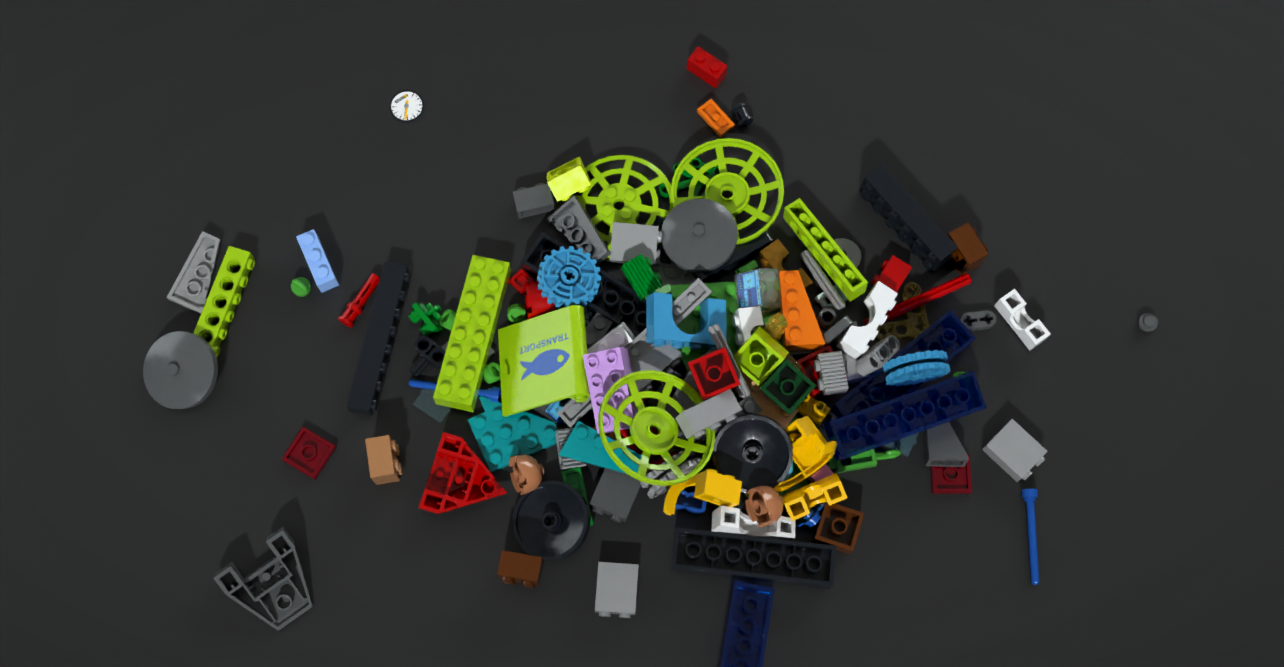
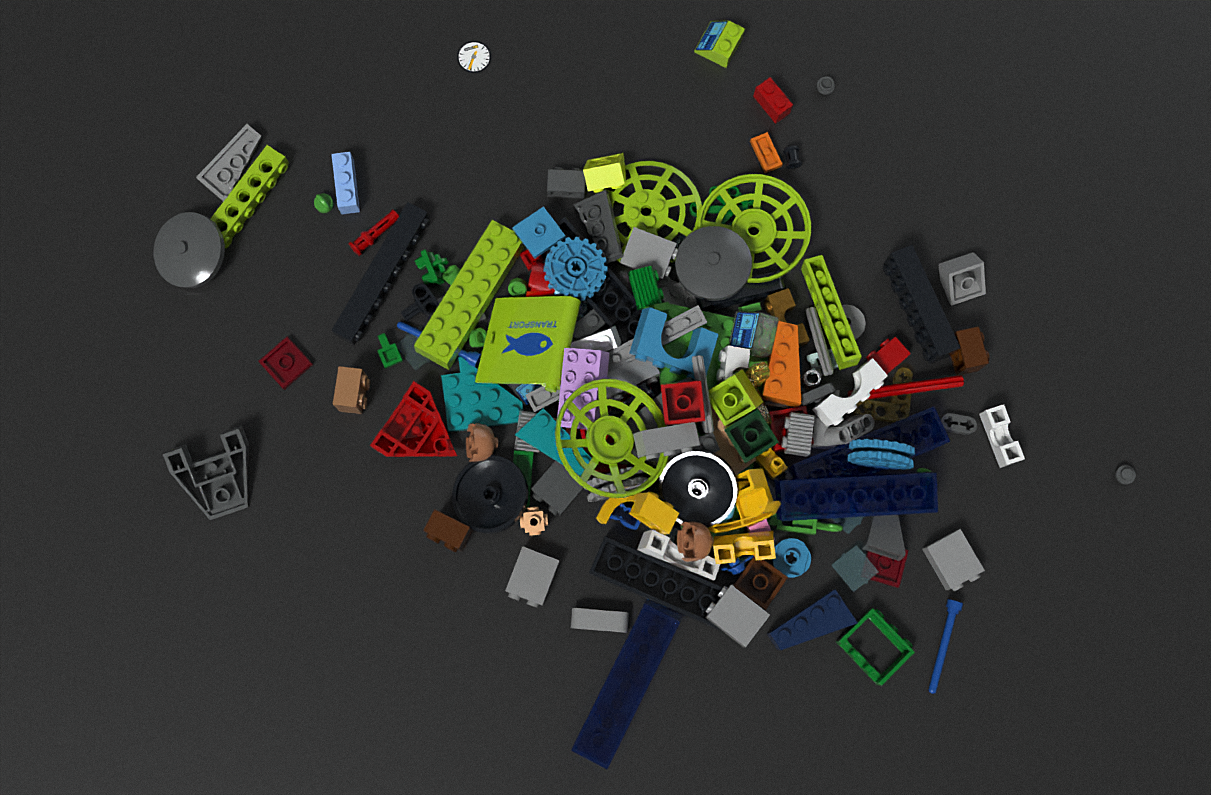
camera: 15 degrees right, 5 degrees up
(409, 413) = (388, 353): none -> green plate
(522, 254) = (539, 232): none -> dark azure plate
(593, 535) = (534, 512): none -> light nougat brick
(639, 26) = (720, 41): none -> lime slope
(695, 611) = (599, 620): none -> light grey beam
(752, 40) = (825, 85): none -> dark grey plate
(827, 564) = (736, 615): none -> light grey brick
(868, 487) = (801, 553): none -> dark azure plate
(904, 547) = (815, 620): none -> dark blue wedge
(924, 487) = (855, 568): none -> clear light blue piece
(938, 182) = (963, 278): none -> light grey slope
(978, 538) = (890, 632): none -> green window

